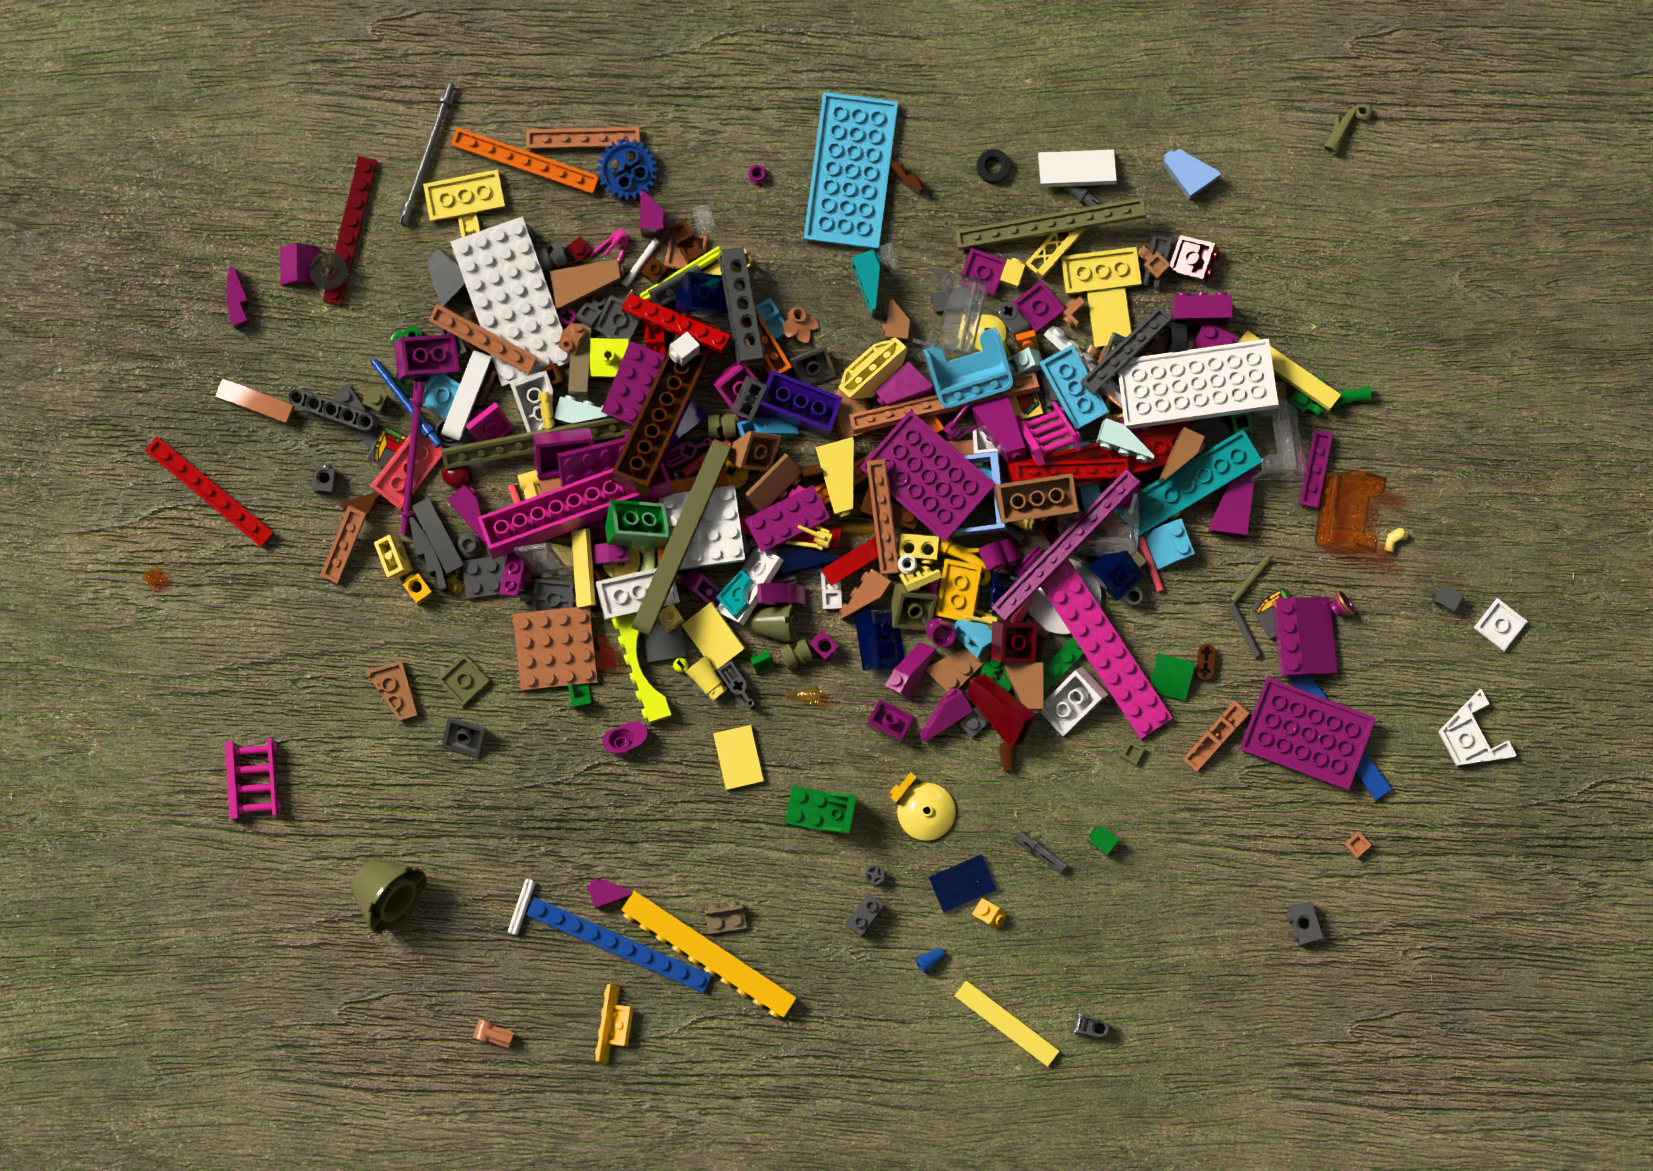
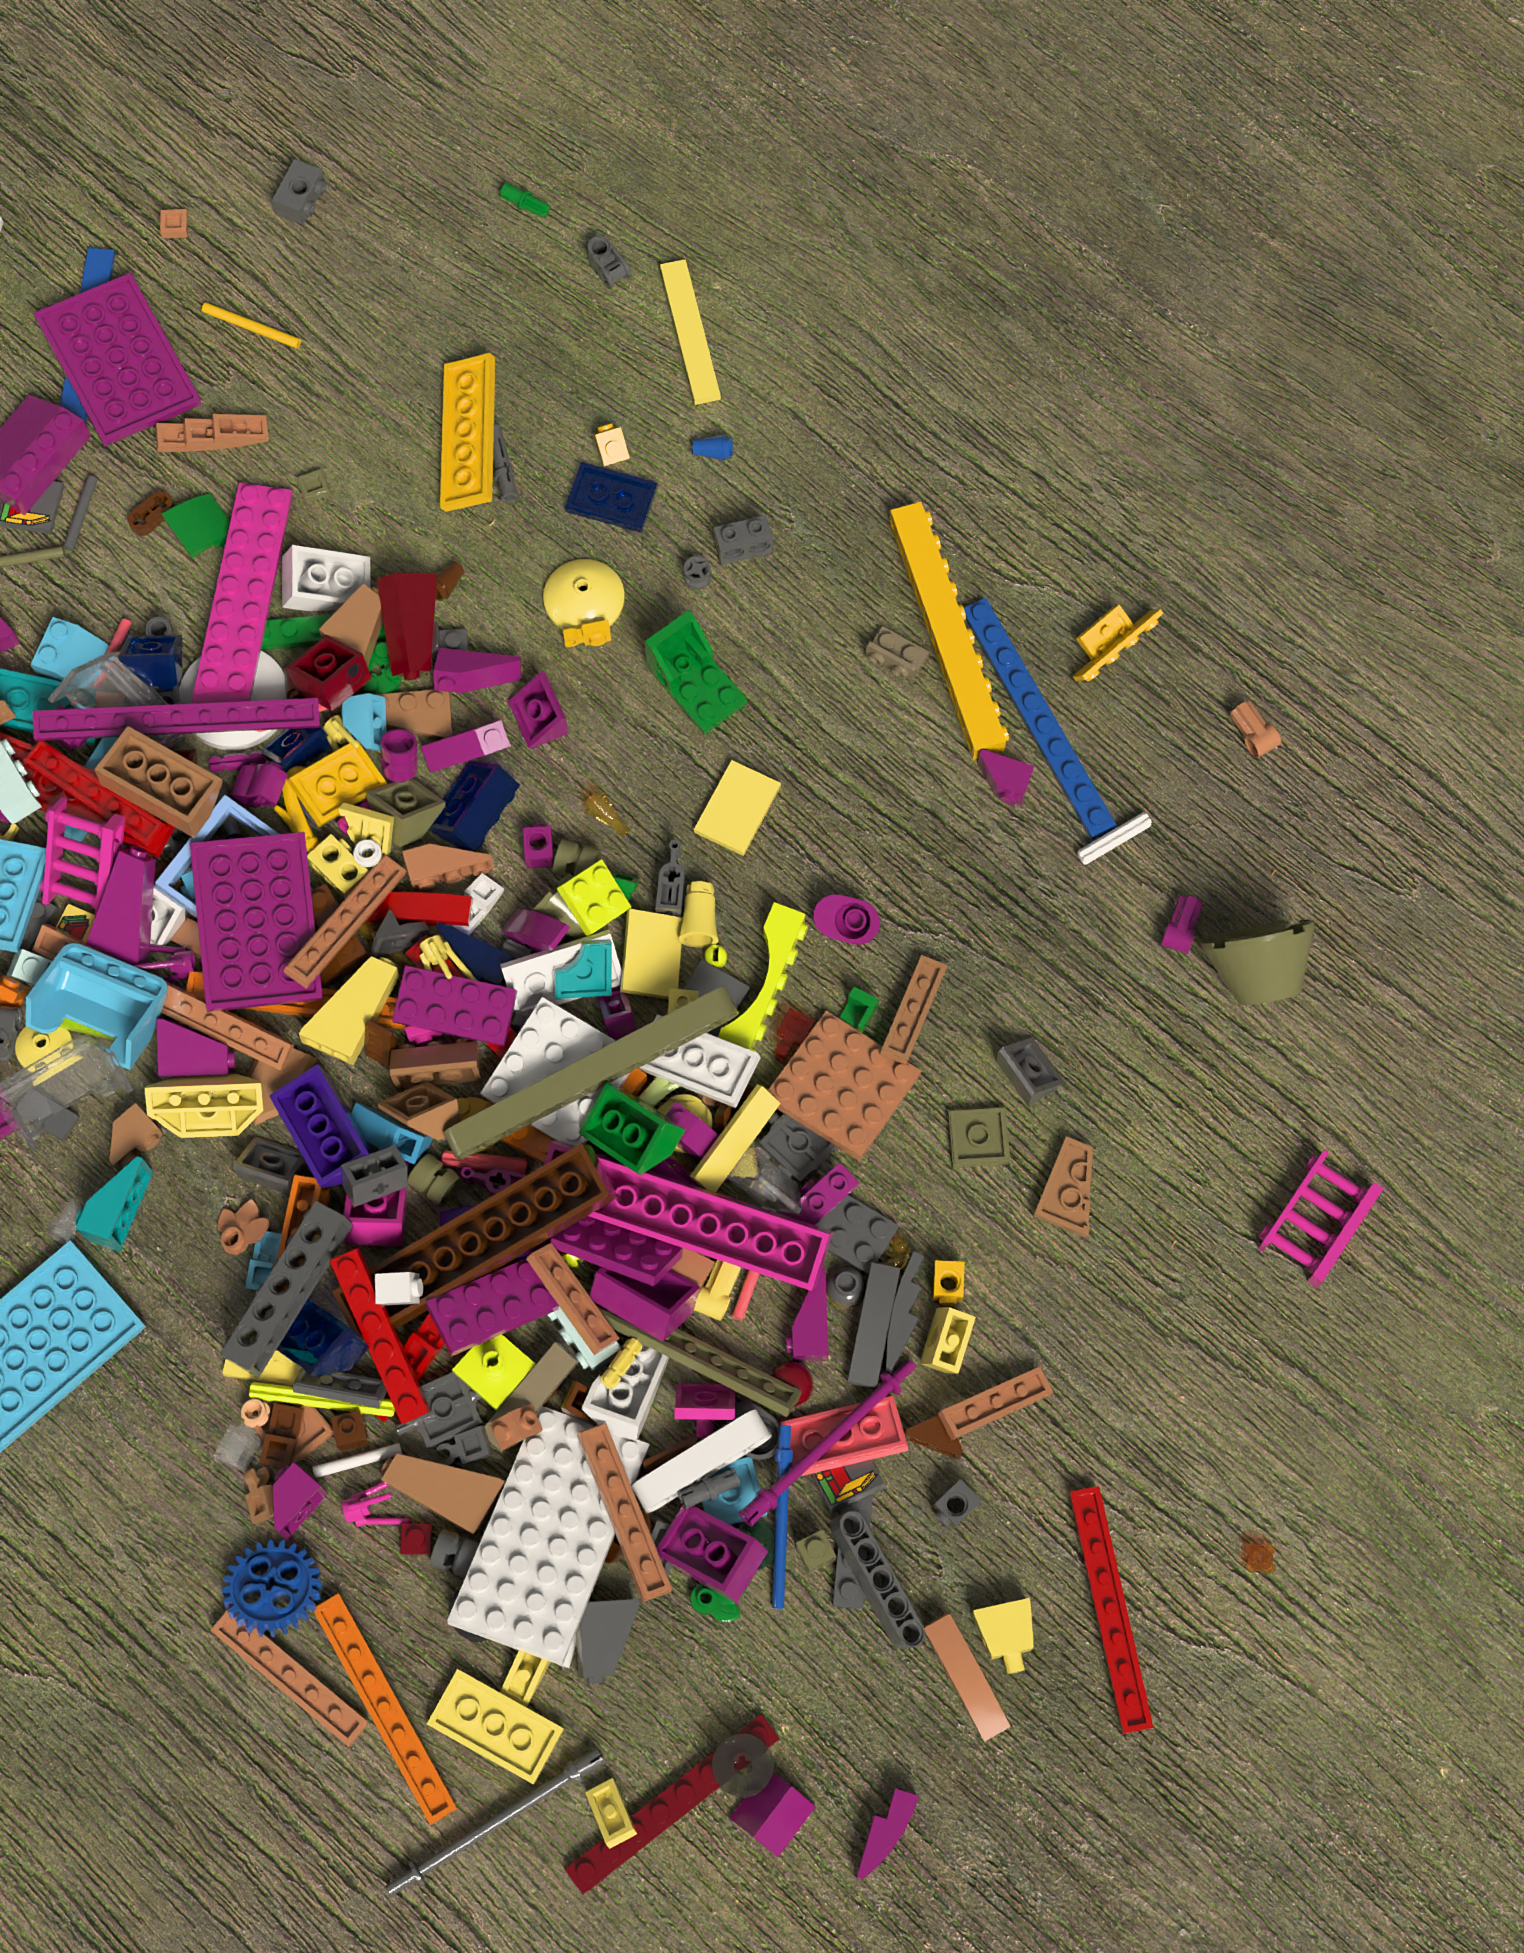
camera: 140 degrees left, 10 degrees down
(252, 438) = (1006, 1632): none -> light yellow torso
(374, 200) = (611, 1813): none -> light yellow plate
(444, 880) = (1181, 930): none -> magenta piece
(451, 385) = (709, 1488): none -> dark grey pin
(550, 718) = (913, 1009): none -> medium nougat plate
(571, 312) = (497, 1456): magenta bush -> none
(595, 418) = (572, 1298): none -> nougat plate
(671, 205) = (260, 1496): none -> medium nougat plate
(708, 246) = (252, 1406): none -> light nougat plate
(757, 168) = (120, 1445): magenta plate -> none
(765, 636) = (594, 897): none -> neon yellow plate
(854, 531) = (395, 937): none -> flat silver slope
(1073, 852) = (467, 432): none -> yellow plate
(1102, 840) = (425, 421): green brick -> none
(1172, 1028) = (524, 200): none -> green axle
(1256, 820) = (251, 325): none -> yellow bar

